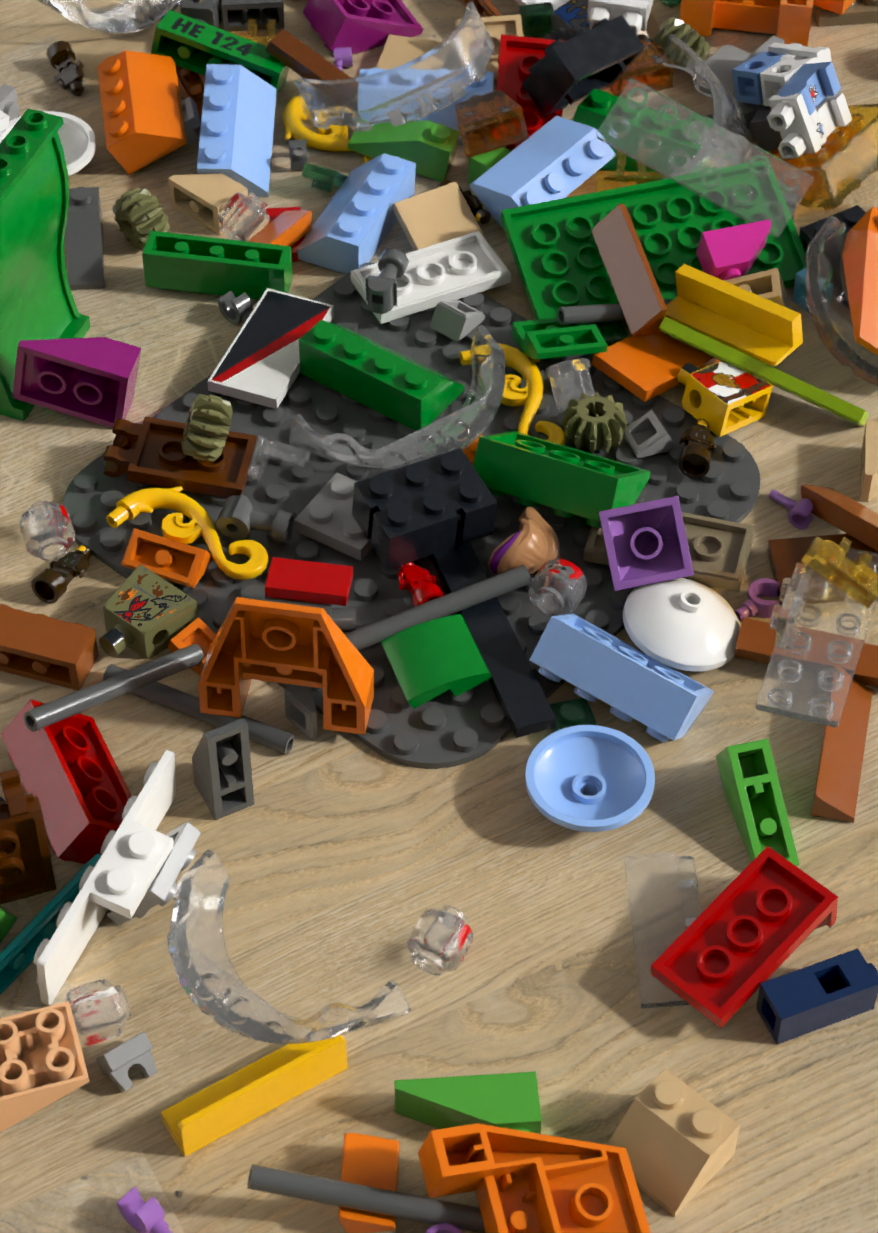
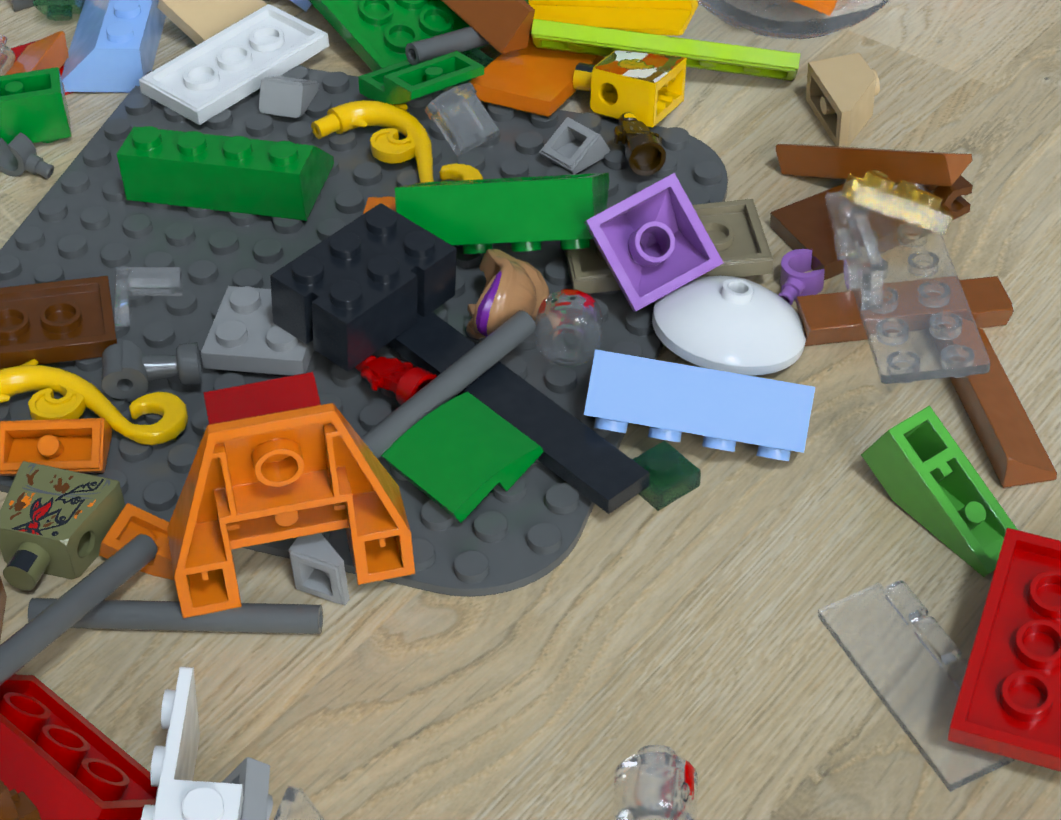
camera: 20 degrees left, 5 degrees down
(207, 427) = (45, 274): olive gear -> none
(224, 769) = (256, 673): dark grey slope -> none
(266, 350) = (76, 185): tile -> none
(382, 289) = (190, 77): dark grey leg -> none
(442, 436) = (367, 176): clear windscreen -> none
(594, 423) = (509, 146): olive gear -> none
(594, 763) = (733, 528): light blue dish -> none
(799, 511) = (785, 175): medium lavender hand -> none

